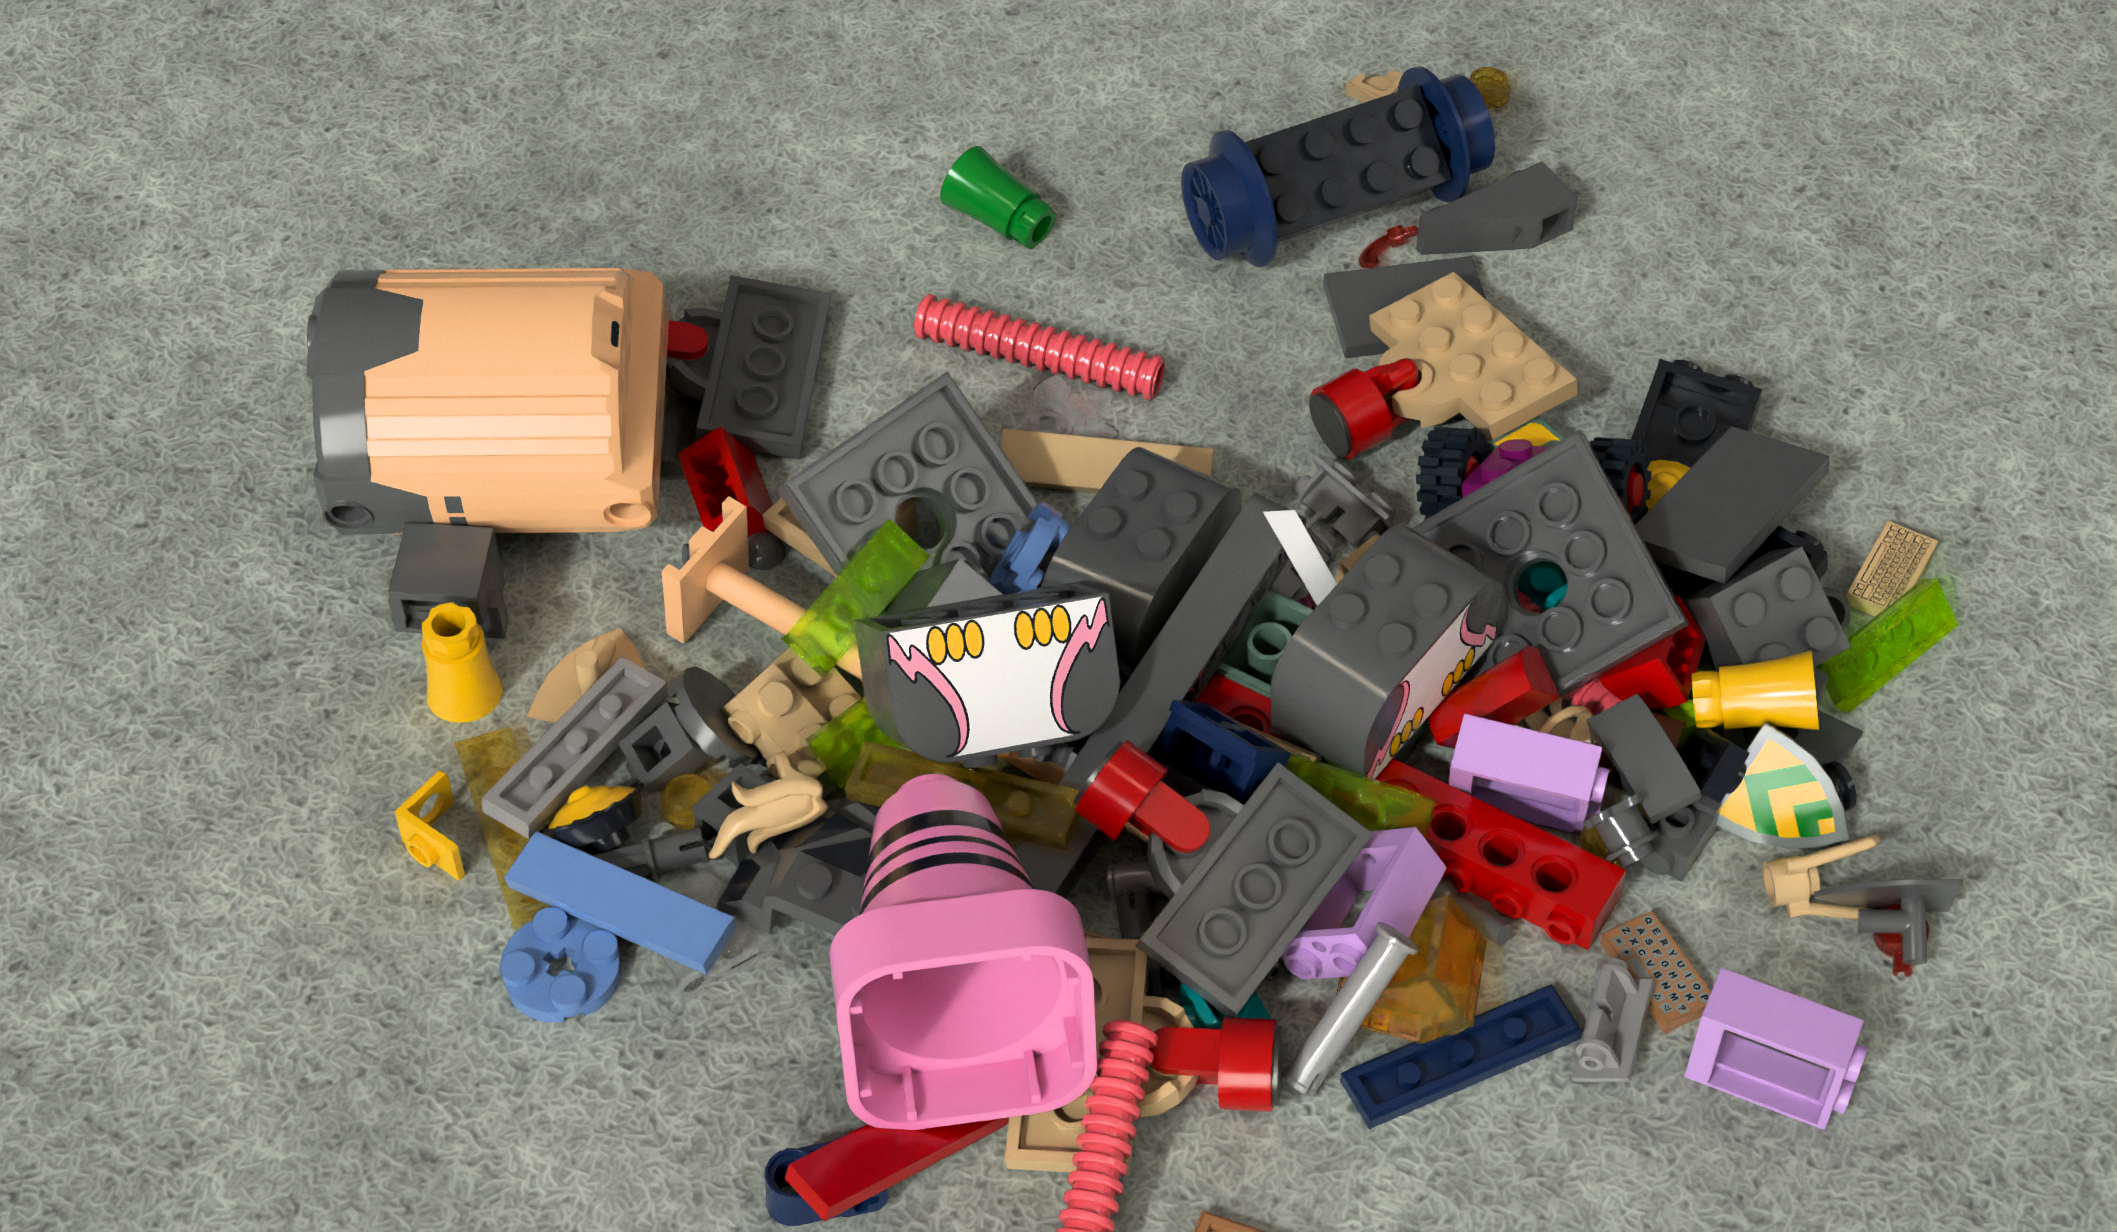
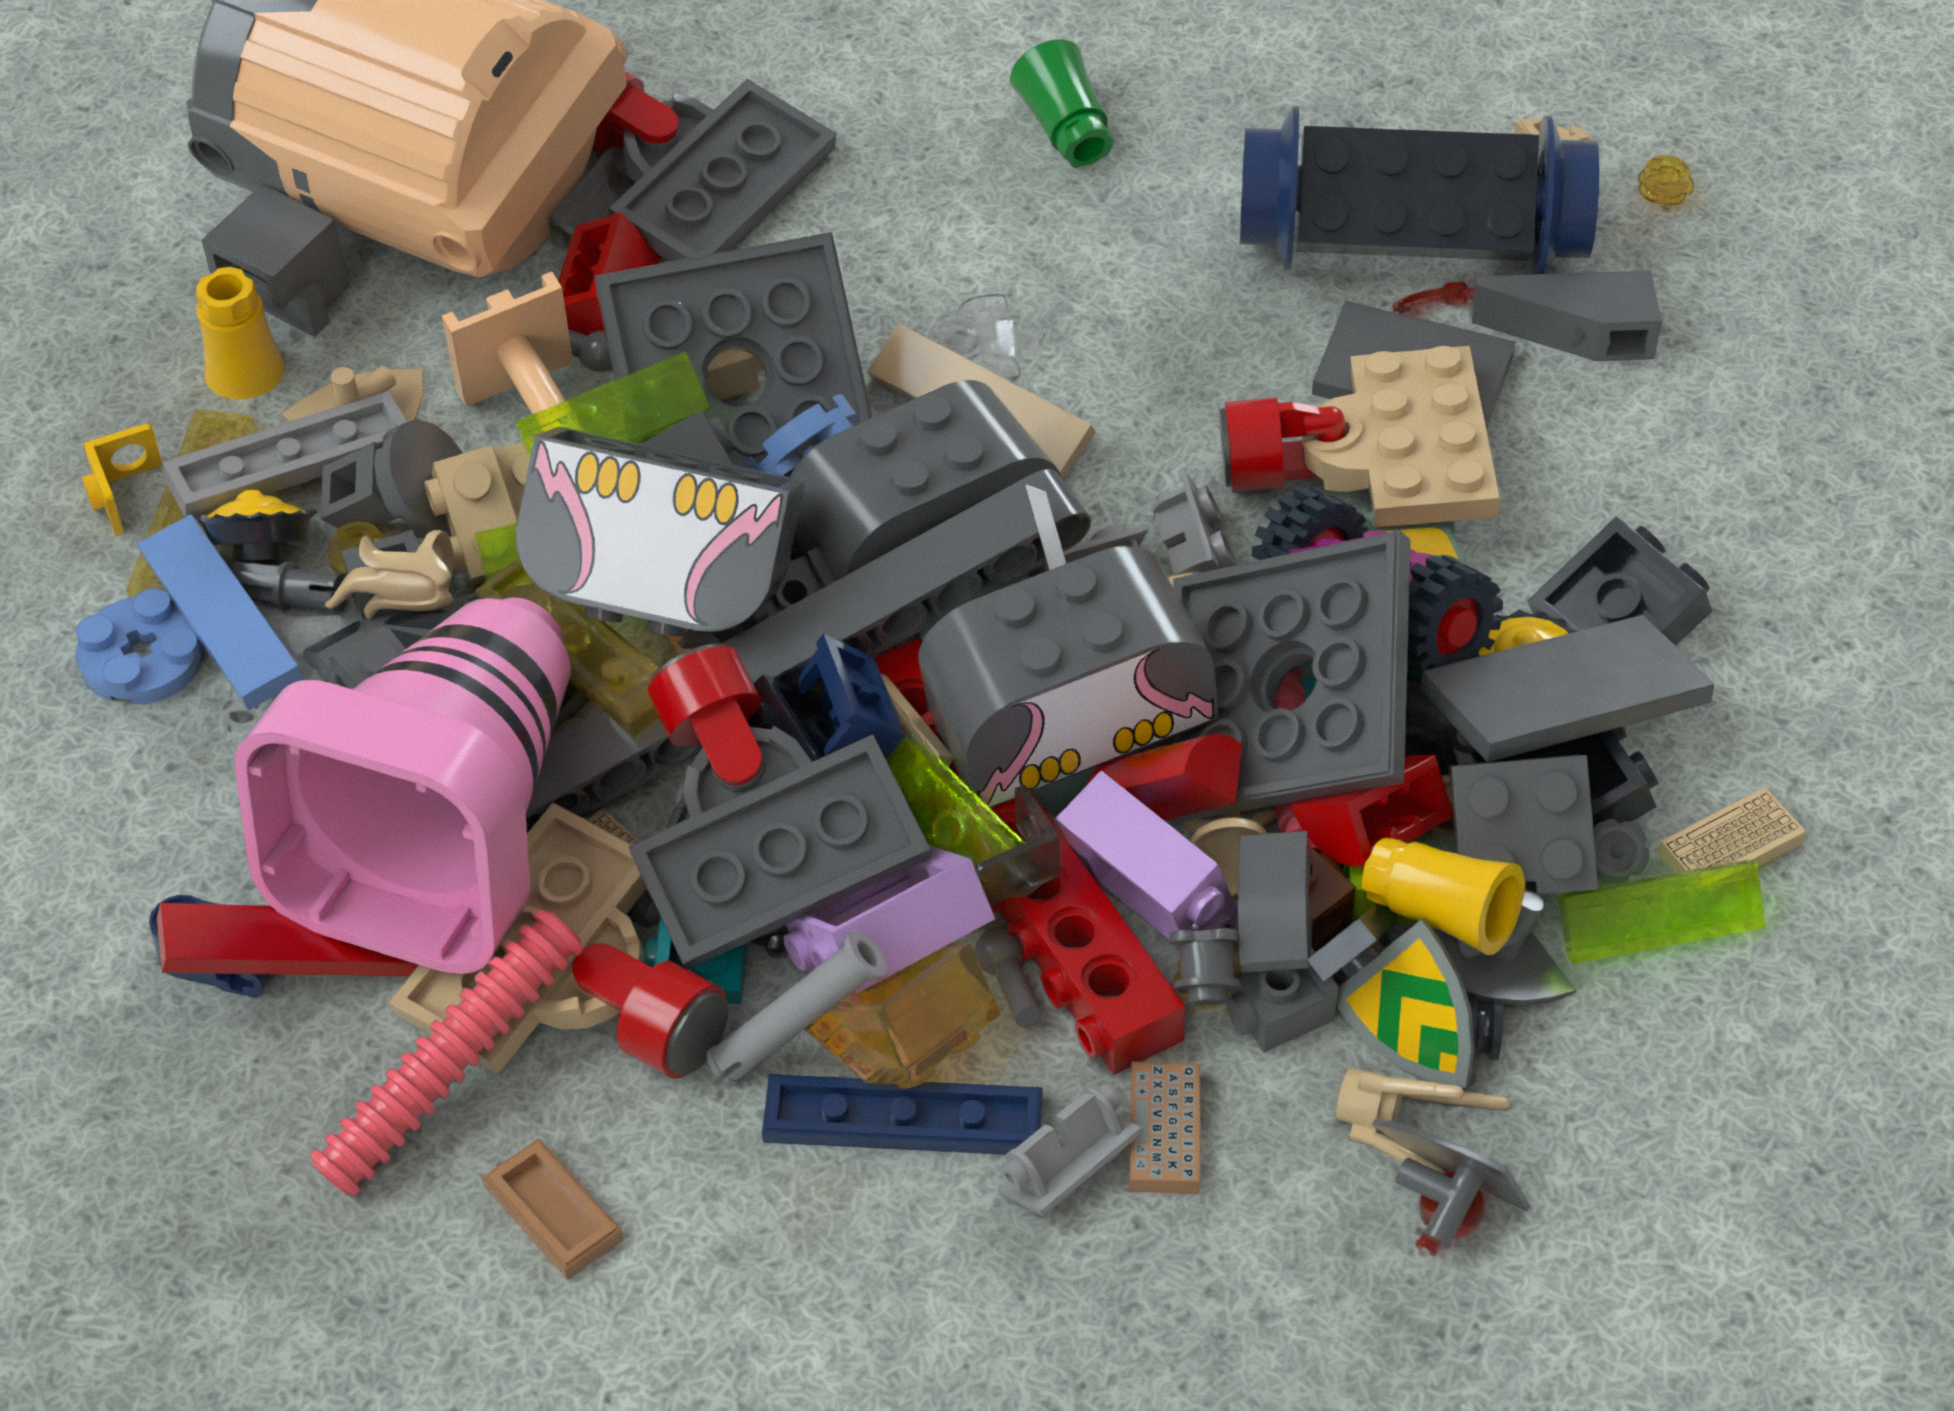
camera: 30 degrees right, 0 degrees up
(1038, 346) = (1002, 262): coral piece -> none
(1448, 813) = (1028, 864): none -> clear smoke bracket
(1785, 1024) = (1200, 1250): lavender window -> none

